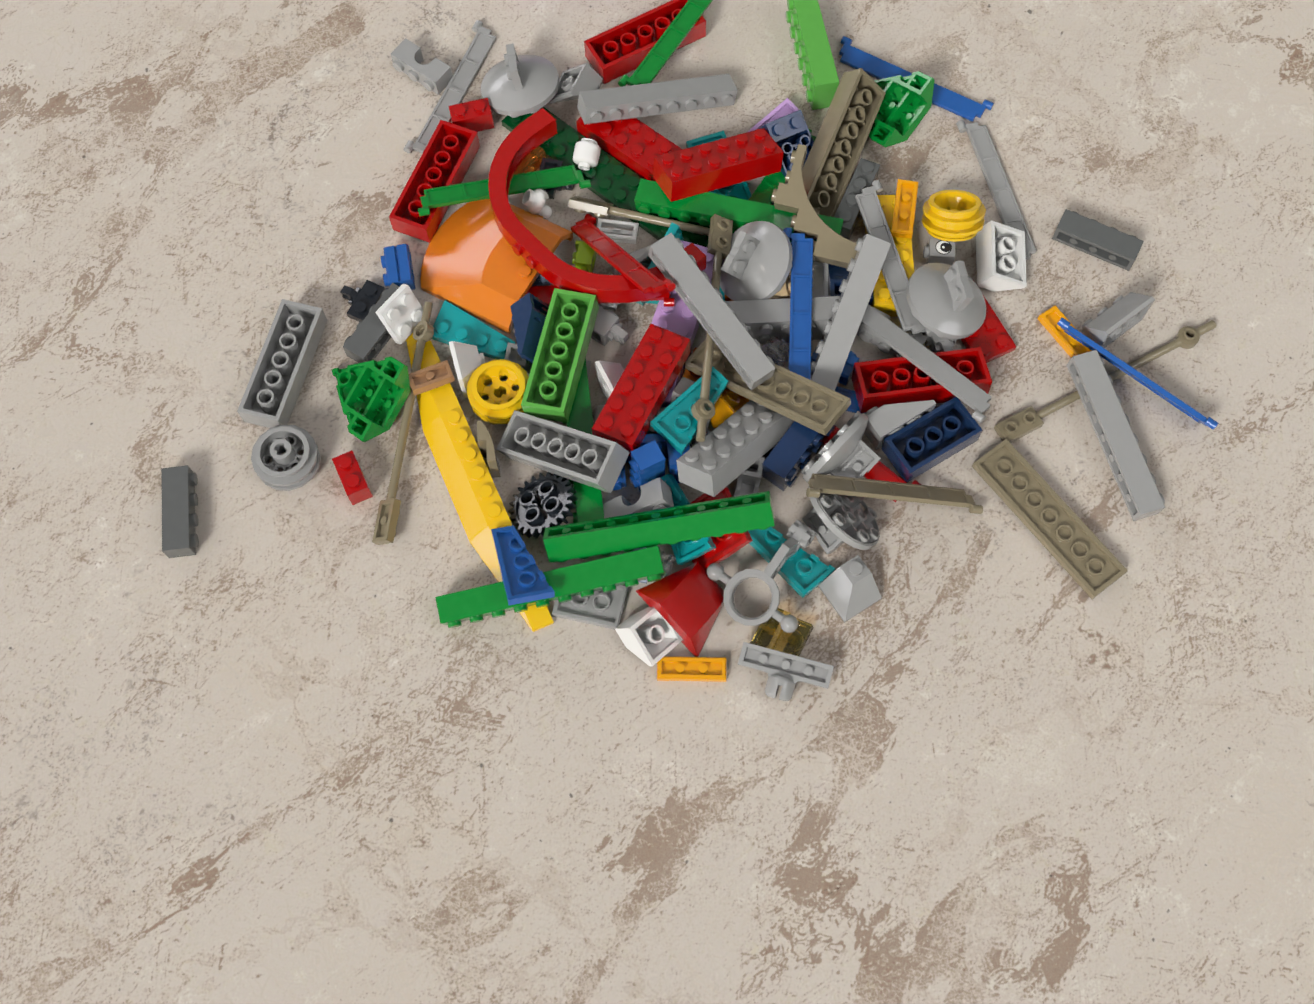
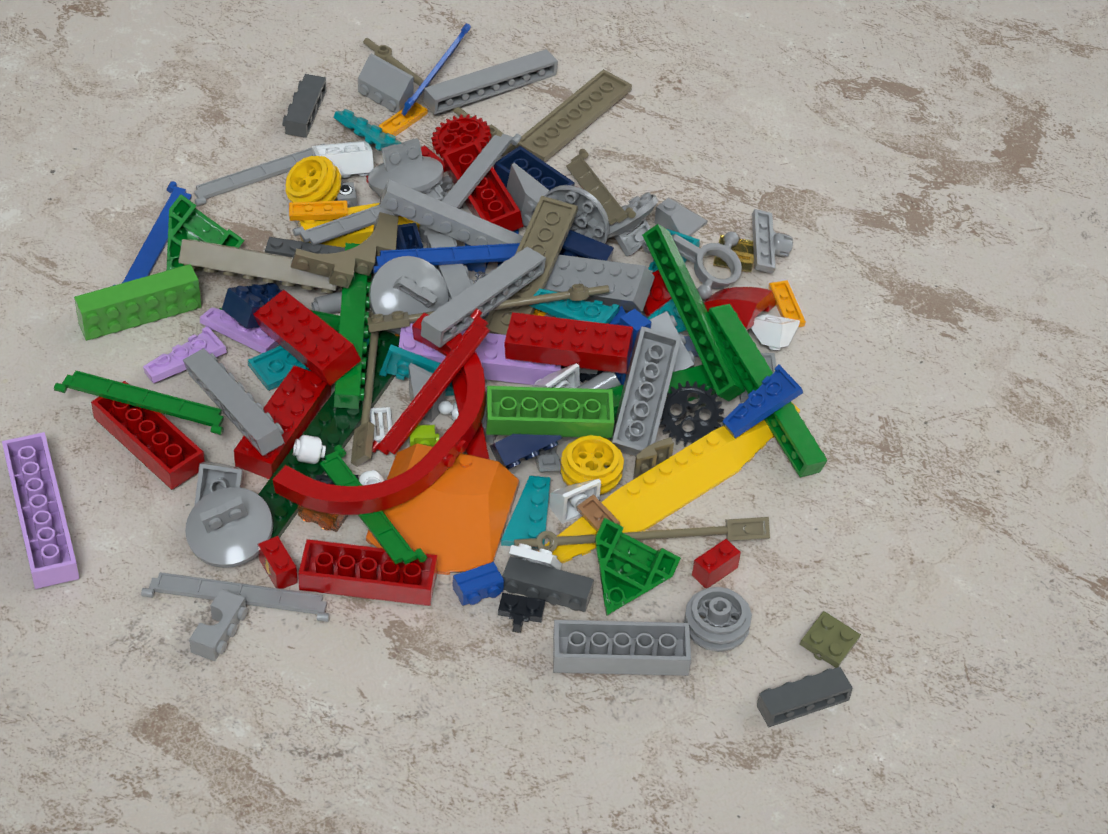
camera: 110 degrees left, 20 degrees down
(235, 560) = (830, 639): none -> olive plate
(750, 97) = (171, 364): none -> lavender wing
(1035, 391) = (459, 133): none -> red gear
(1038, 294) = (362, 128): none -> teal wing

